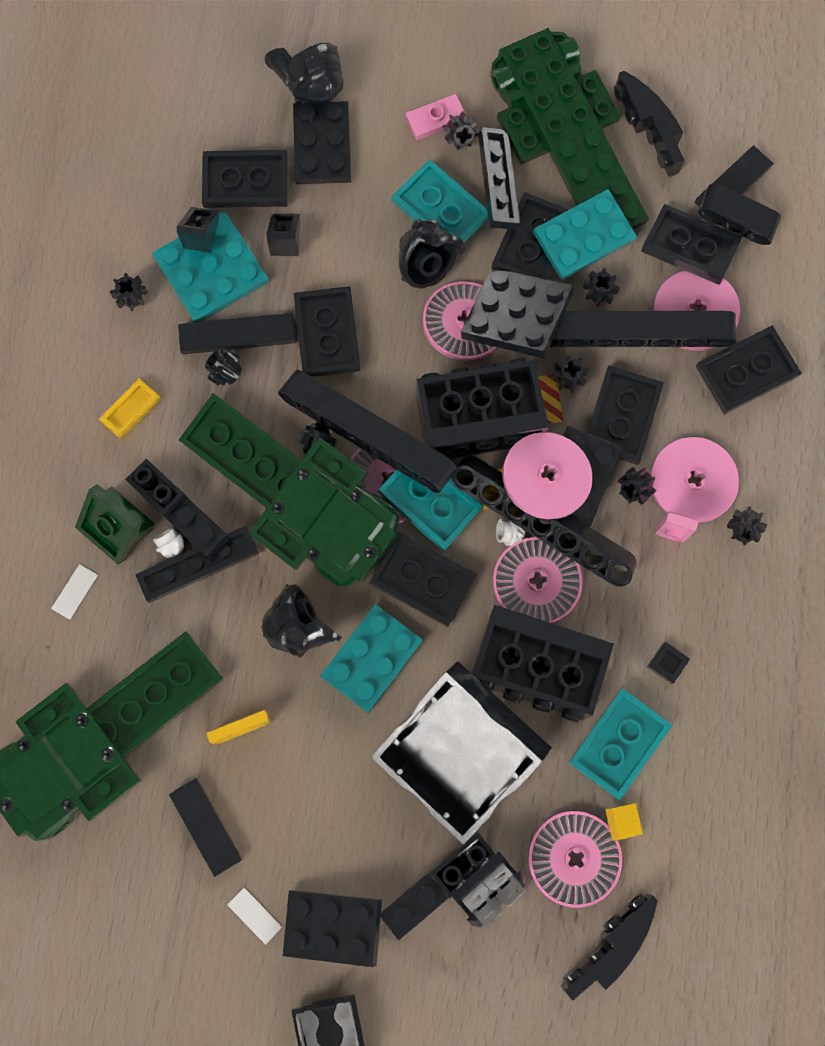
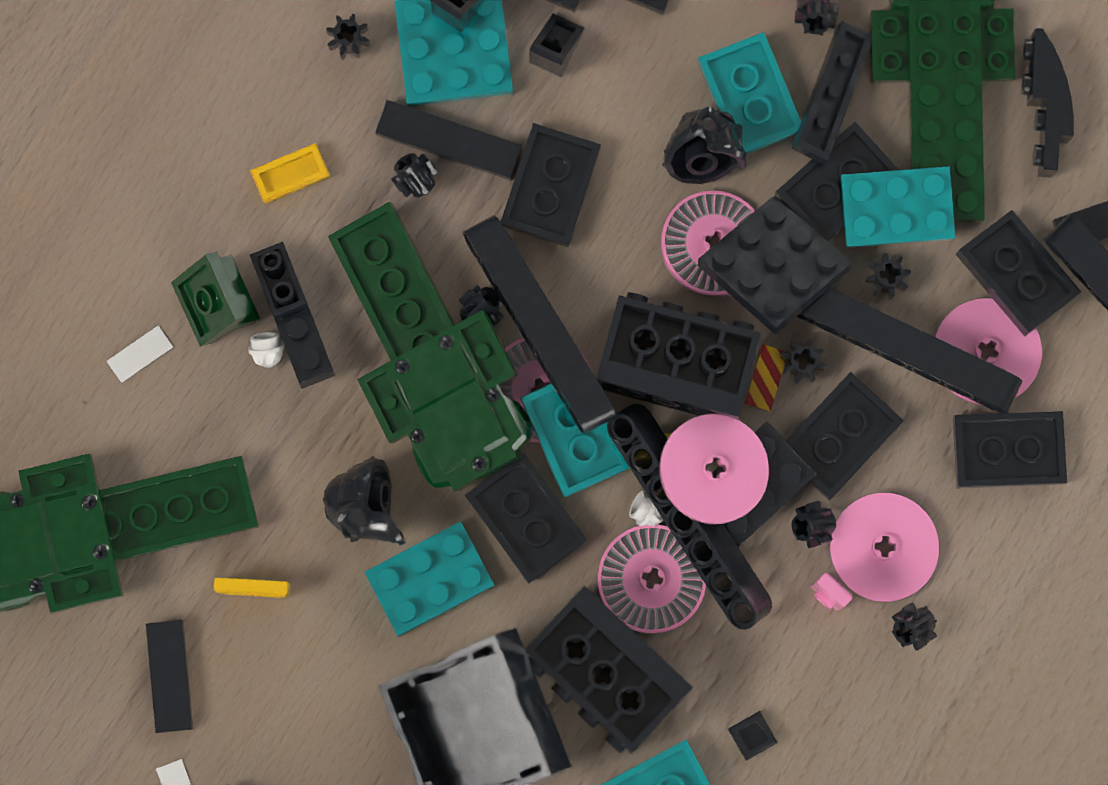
camera: 25 degrees right, 5 degrees up
(195, 566) = (282, 387): black plate -> none

